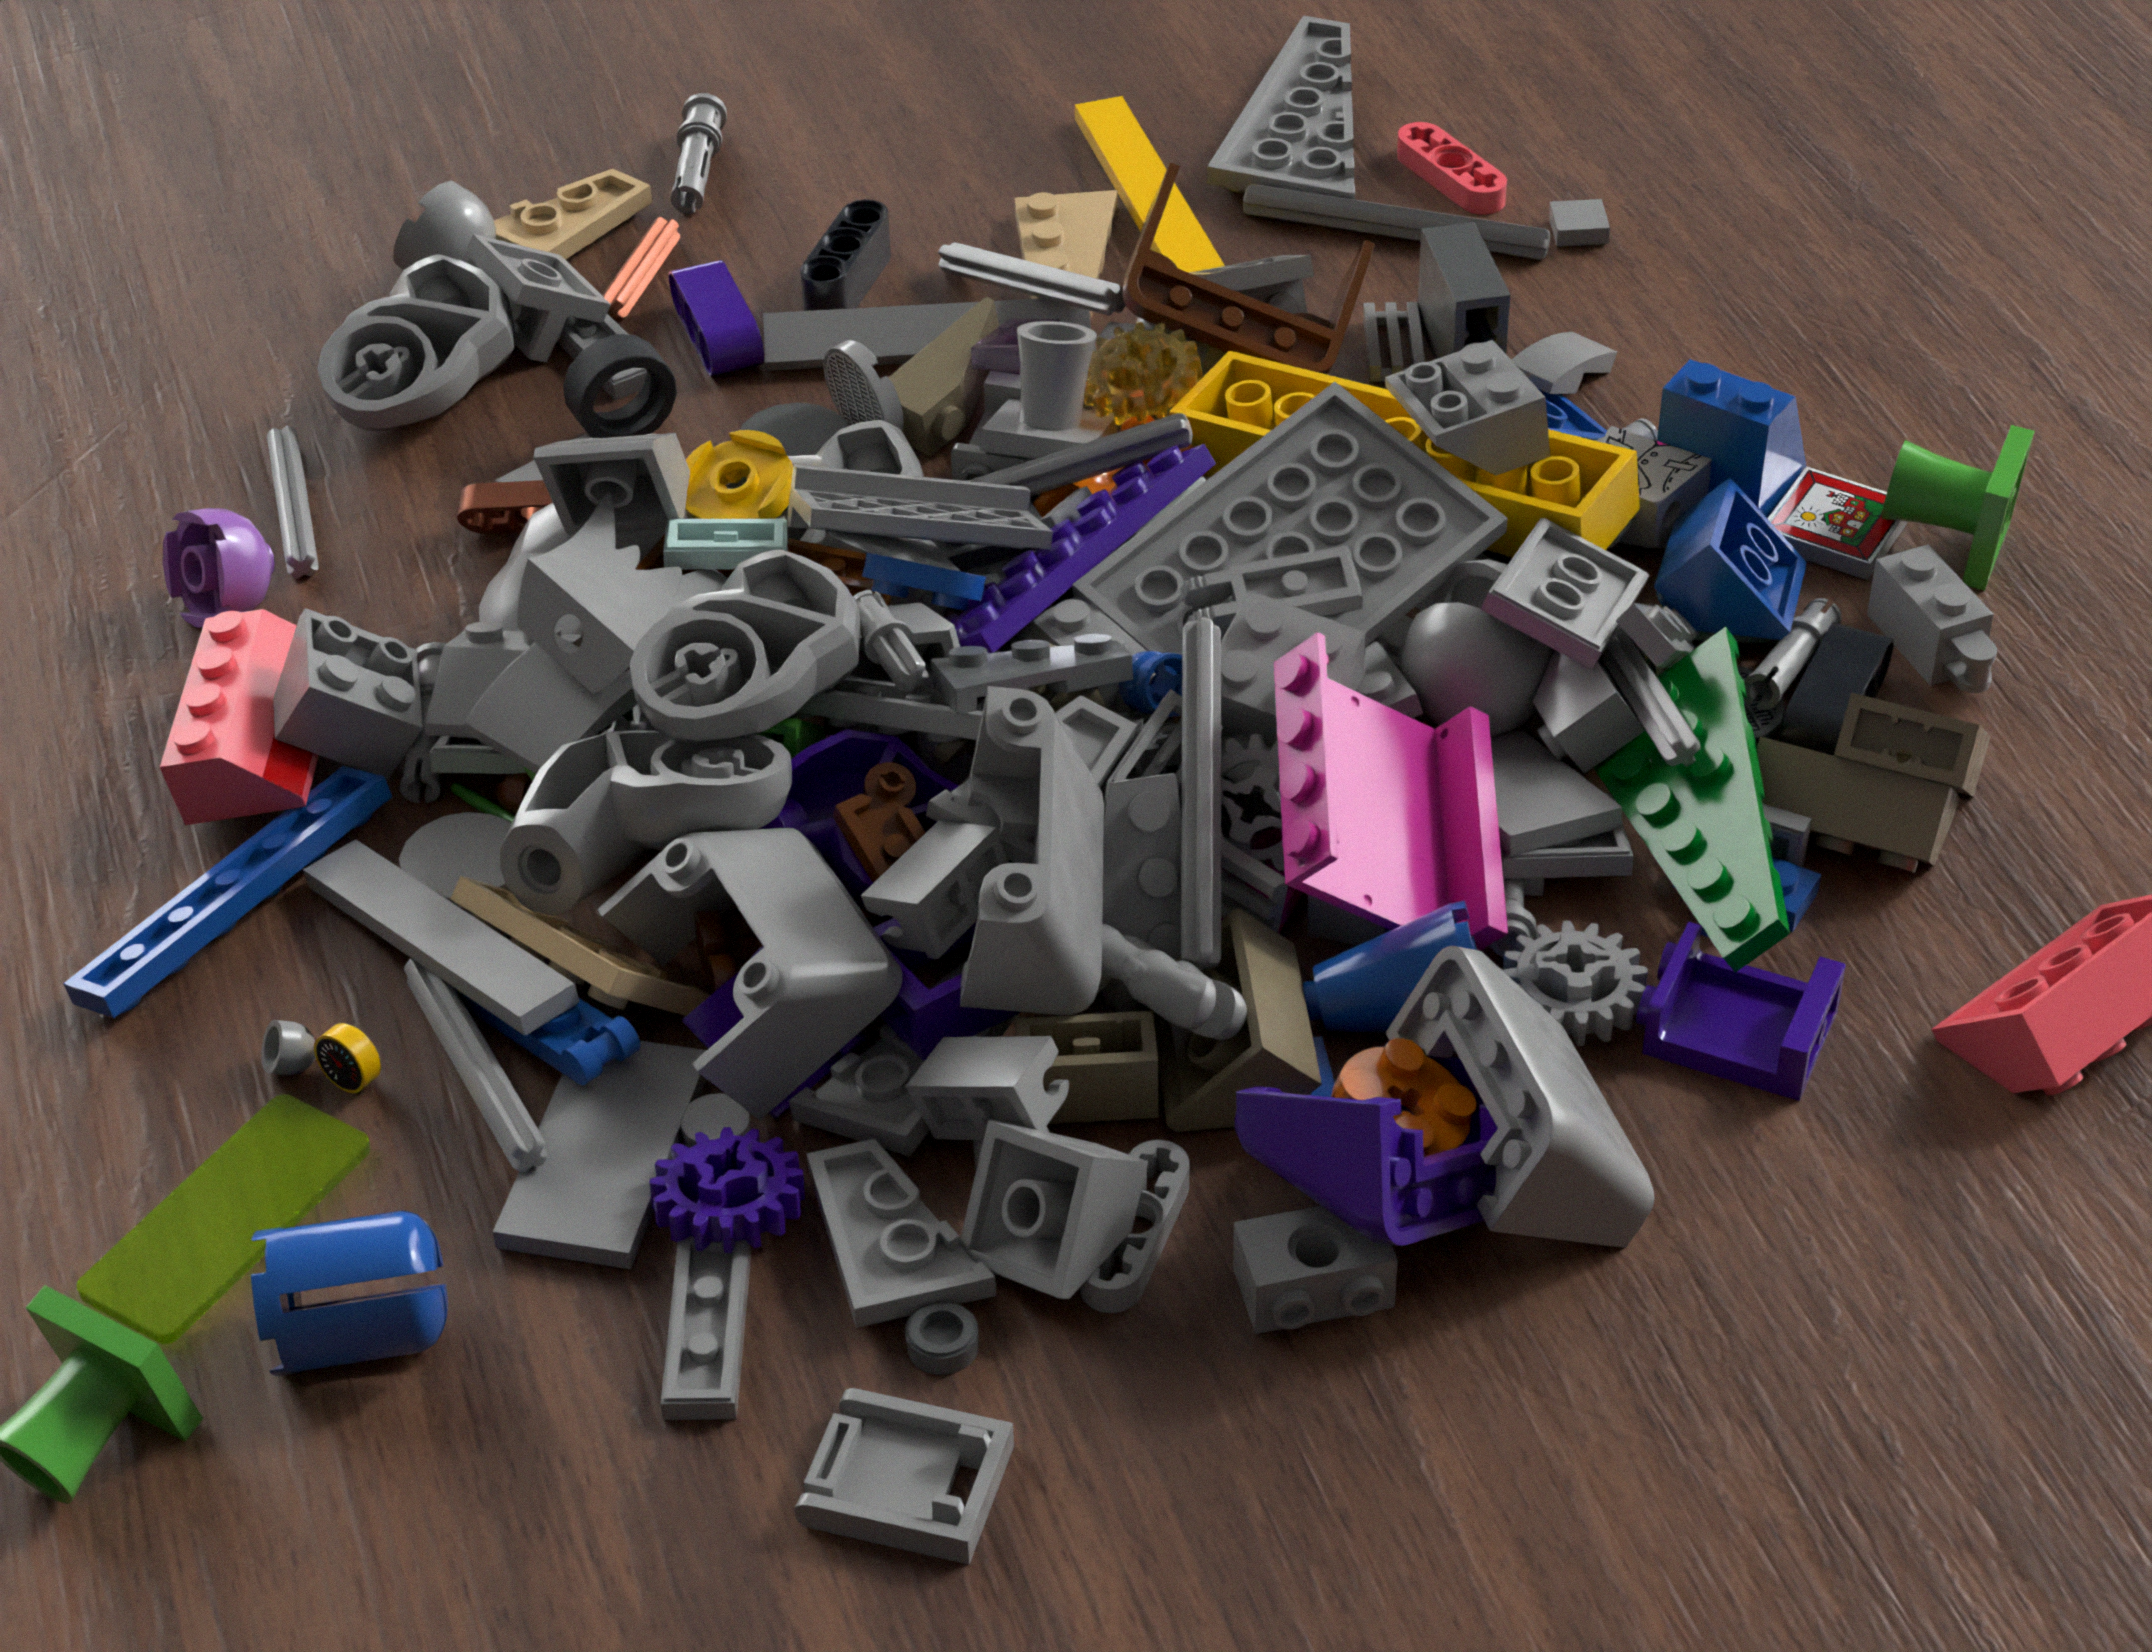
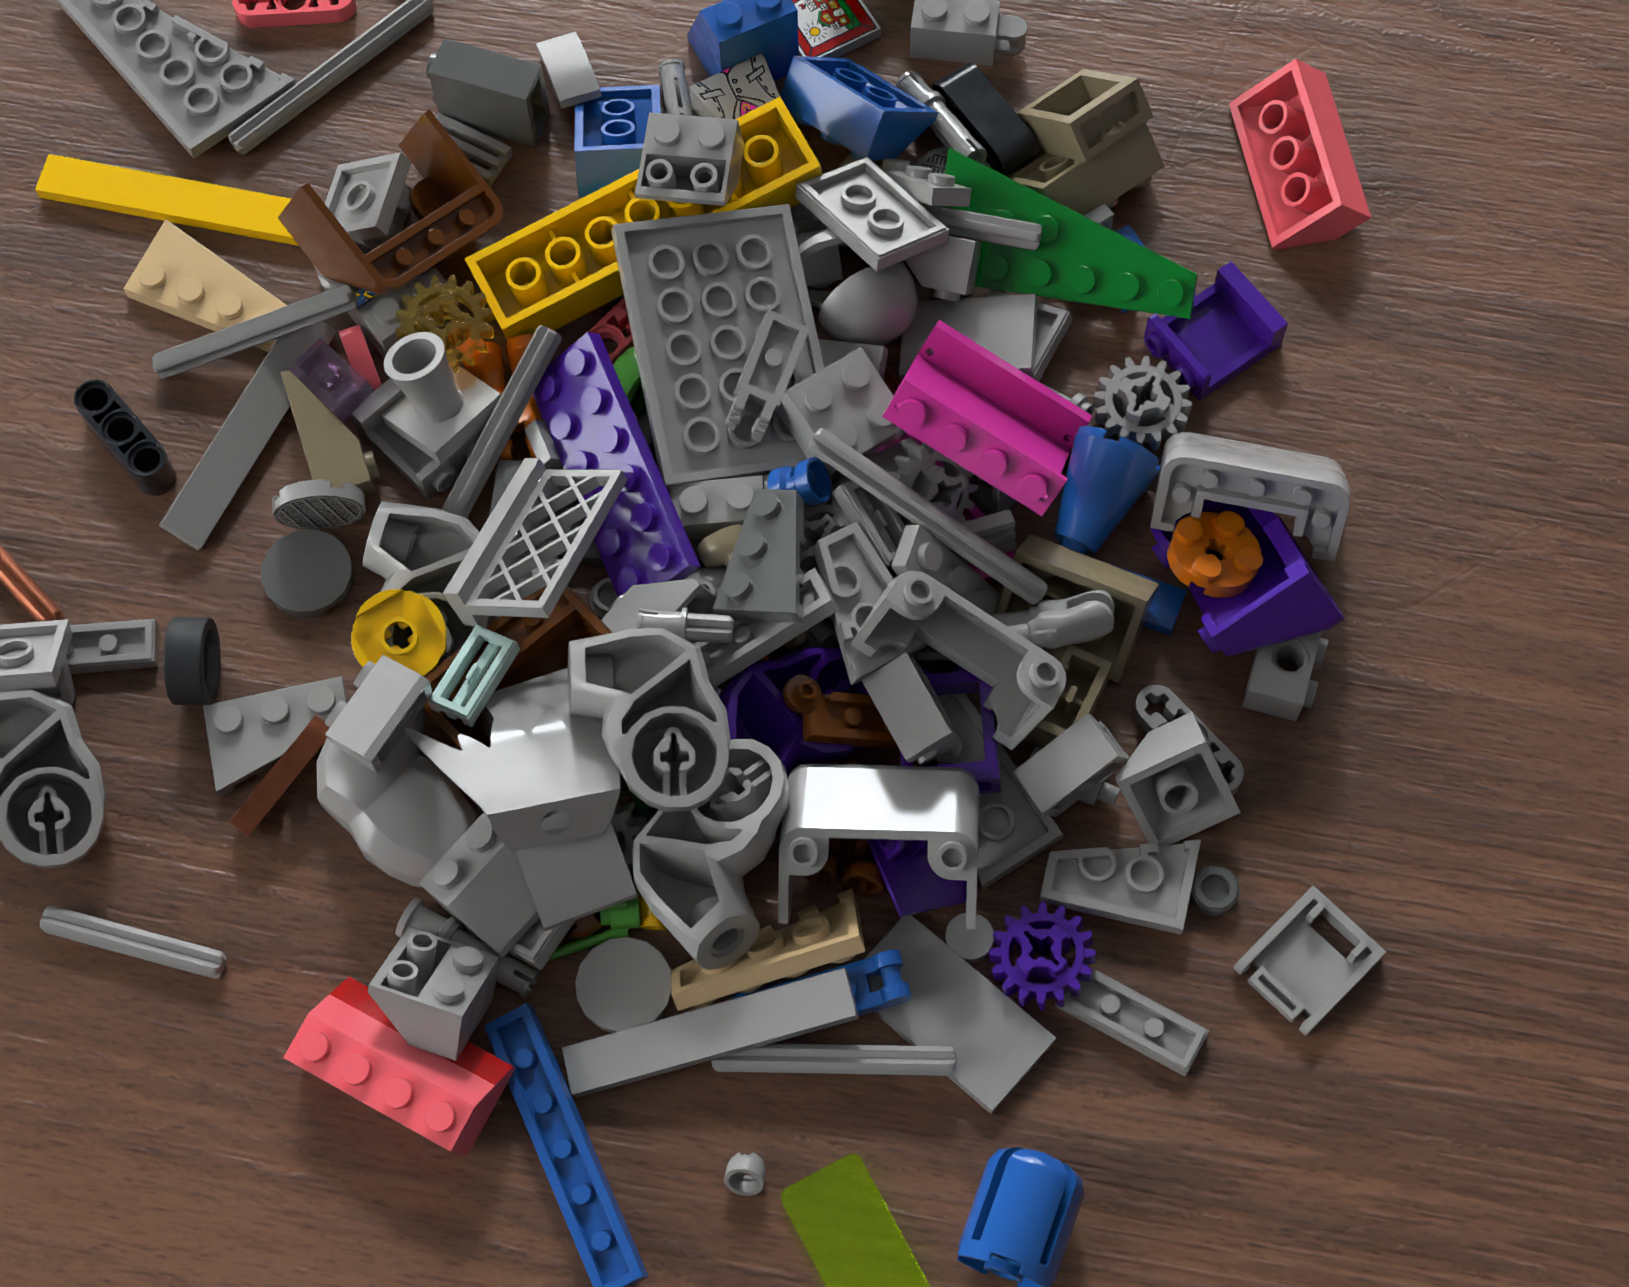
camera: 60 degrees left, 25 degrees up
(216, 563) = (203, 1026): medium lavender cylinder -> none
(347, 1057) = (783, 1137): tile -> none
(716, 318) = (125, 555): dark purple beam -> none
(949, 586) = (604, 570): blue plate -> none

